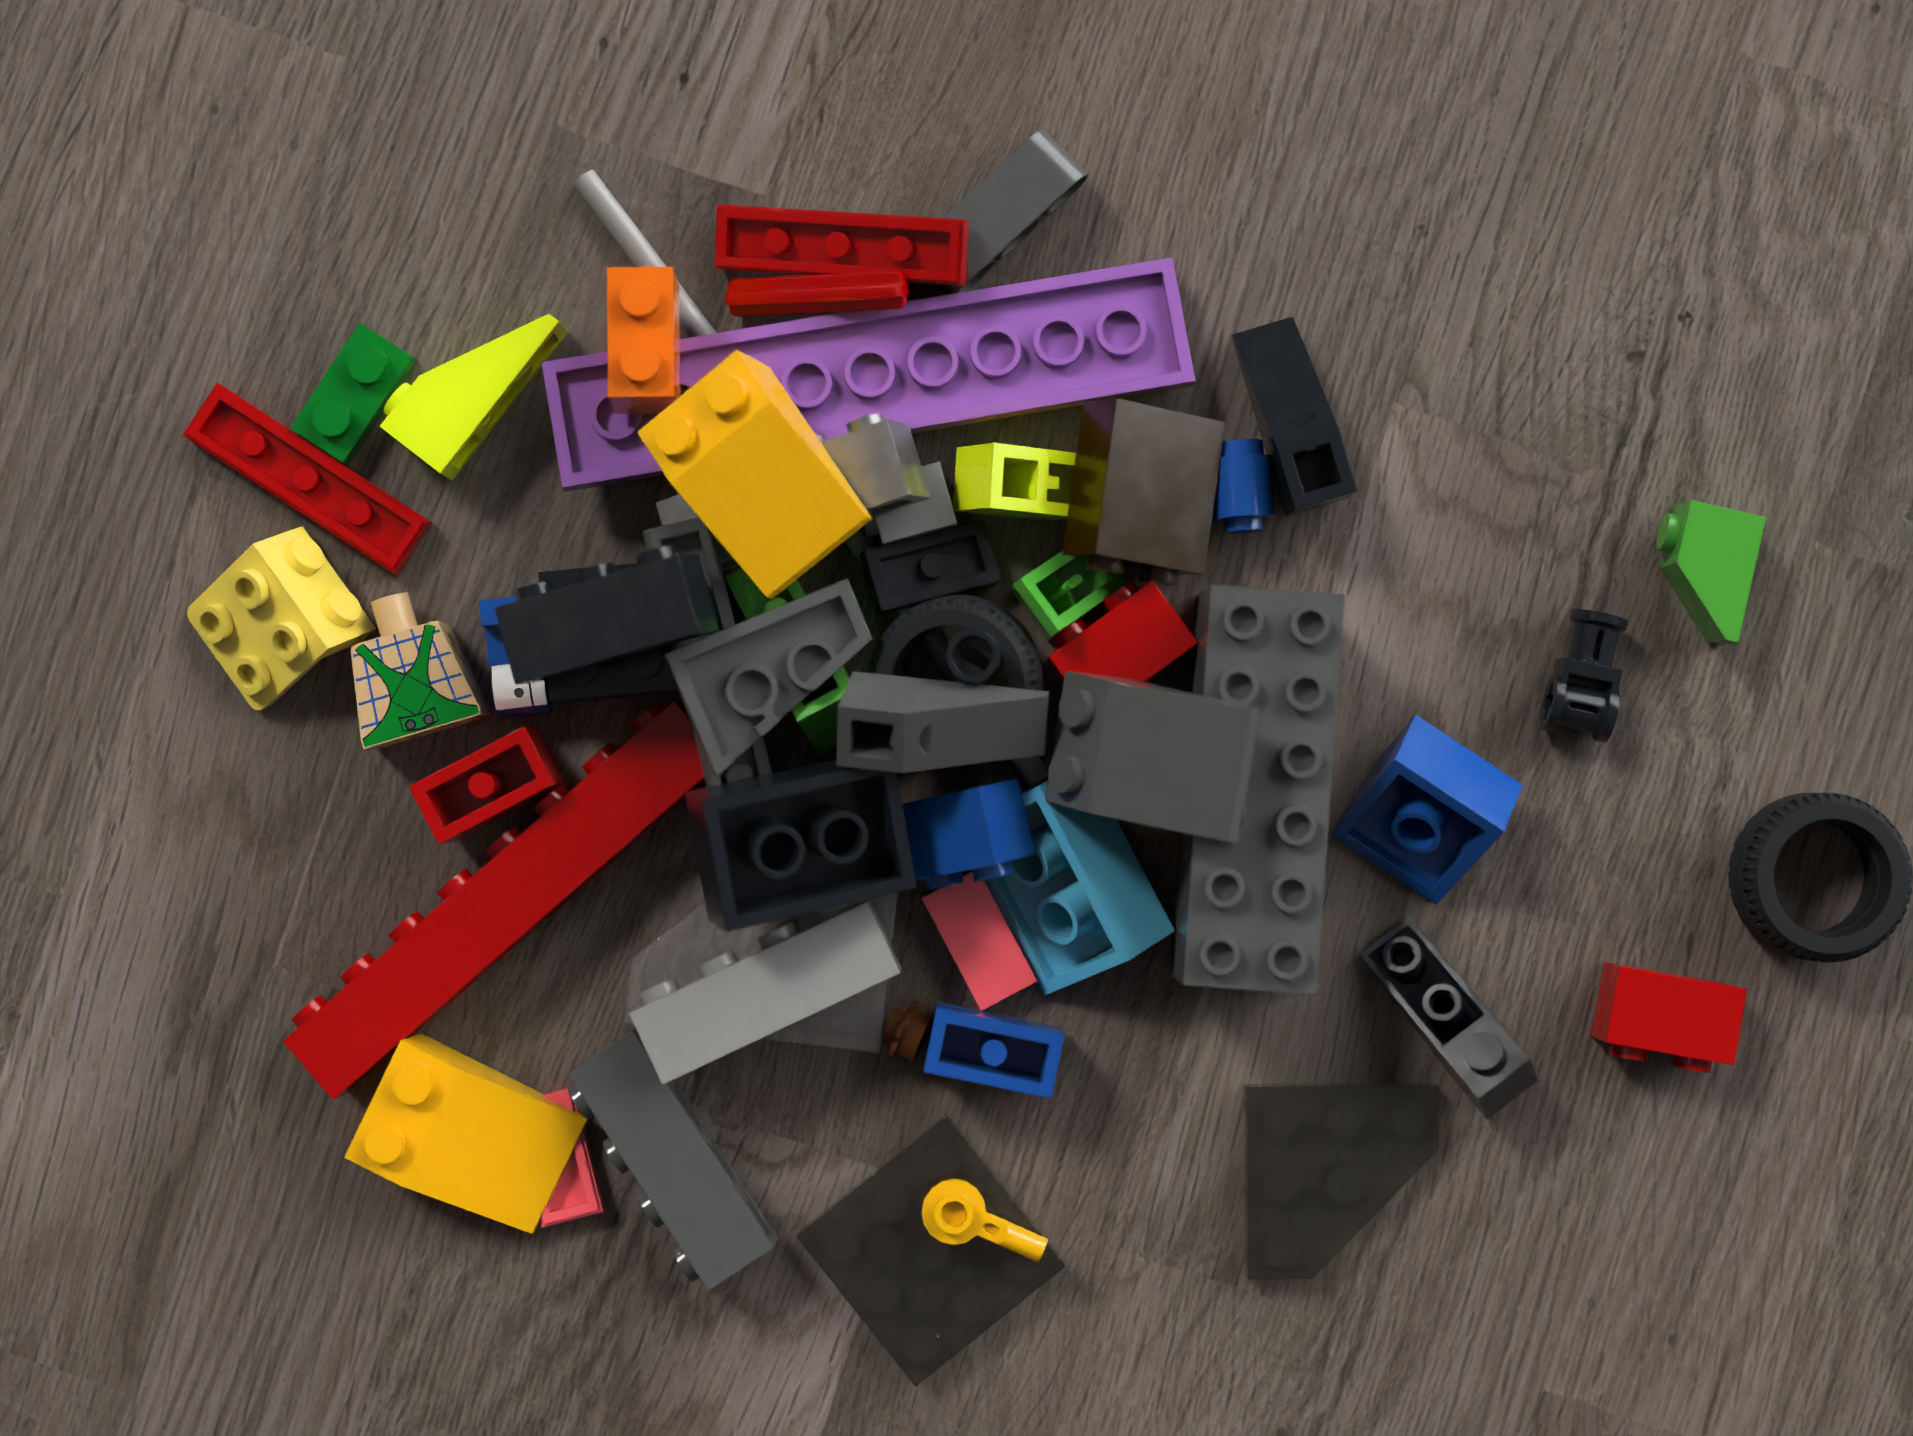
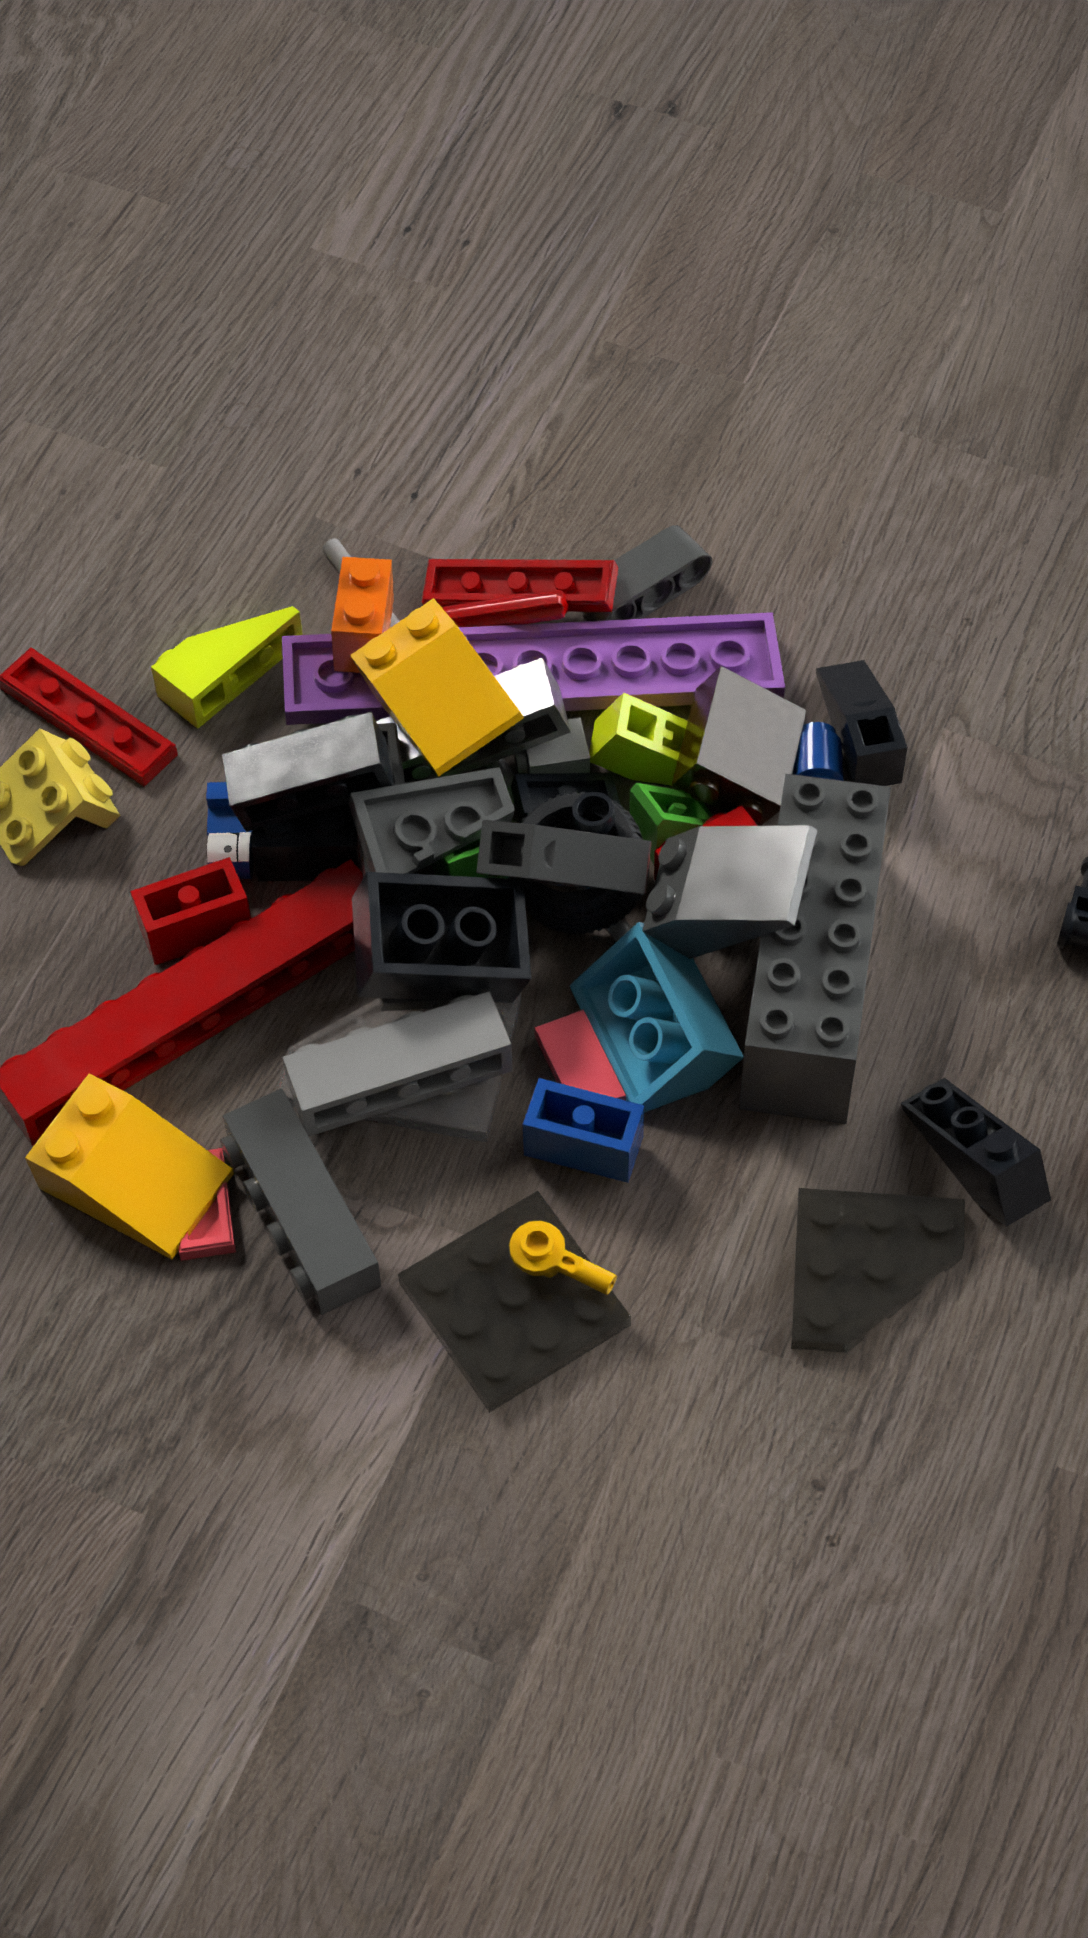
camera: 10 degrees right, 30 degrees down
(353, 394) = (127, 667): green plate -> none
(412, 678) = (141, 841): torso -> none
(906, 1032) = (507, 1125): reddish brown plate -> none
(968, 831) = (574, 963): blue brick -> none
(1428, 810) = (958, 992): blue slope -> none

